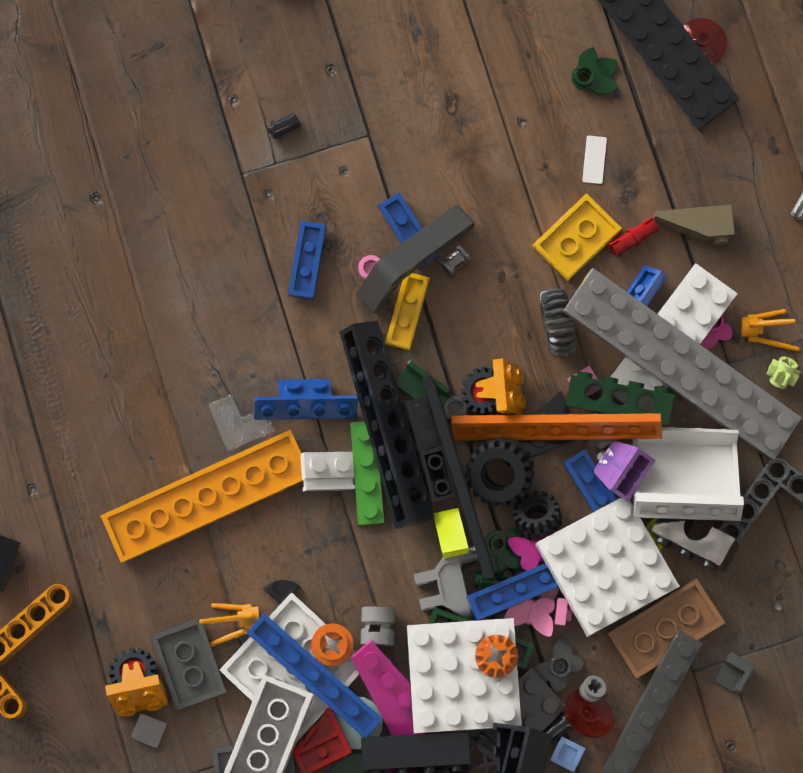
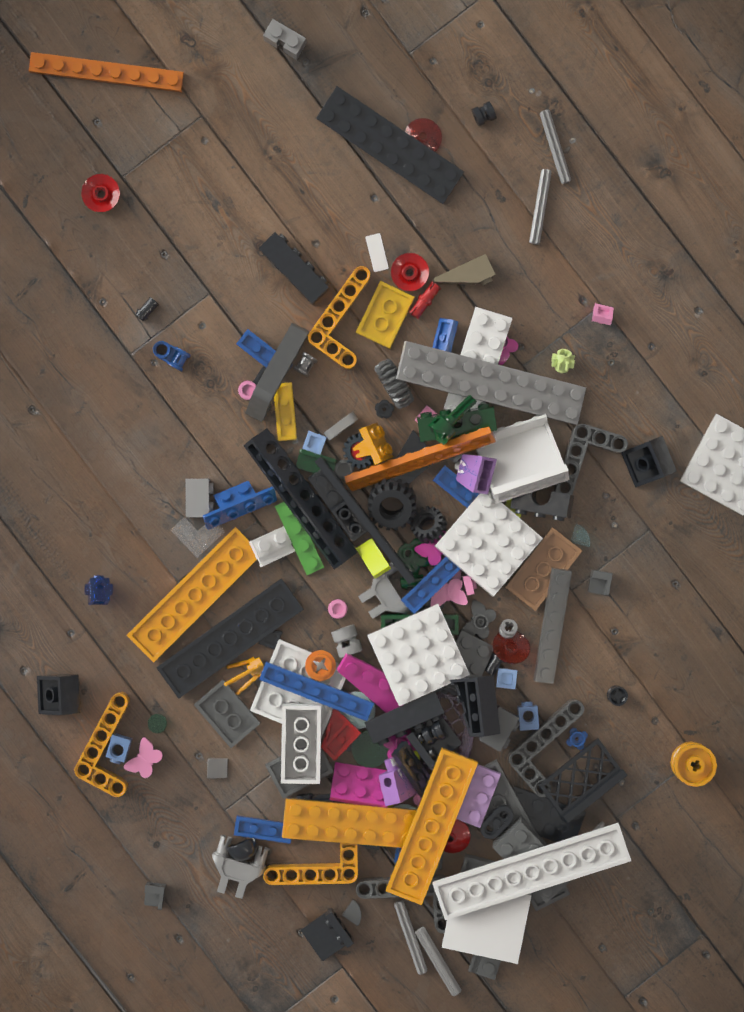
camera: 30 degrees left, 10 degrees up
(45, 655) = (122, 740): none -> medium blue brick
(61, 683) = (145, 759): none -> bright pink animal
(88, 446) = (98, 590): none -> clear blue brick
(95, 644) = (157, 723): none -> clear green tile
(135, 684) = (196, 740): light orange plate -> none
(229, 568) = (230, 638): none -> black plate
(258, 375) = (198, 497): none -> light grey brick
(295, 193) = (172, 355): none -> blue piece
(307, 260) = (200, 401): blue plate -> none
(381, 582) = (337, 608): none -> bright pink tile
(431, 361) = (314, 442): none -> light blue tile
(471, 353) = (341, 426): none -> light grey beam
(484, 140) = (294, 268): none -> black brick
(492, 668) = (436, 625): orange gear -> none
(517, 217) = (336, 316): none -> light orange beam
(531, 346) = (384, 404): none -> black plate
(598, 72) = (356, 186): dark green plate -> none
(601, 394) = (443, 427): none -> dark green piece
(627, 183) = (412, 262): none -> red dish
(729, 604) = (580, 536): none -> clear light blue tile
(753, 326) = (530, 335): light orange plant -> none
(788, 39) = (484, 113): none -> black wheel

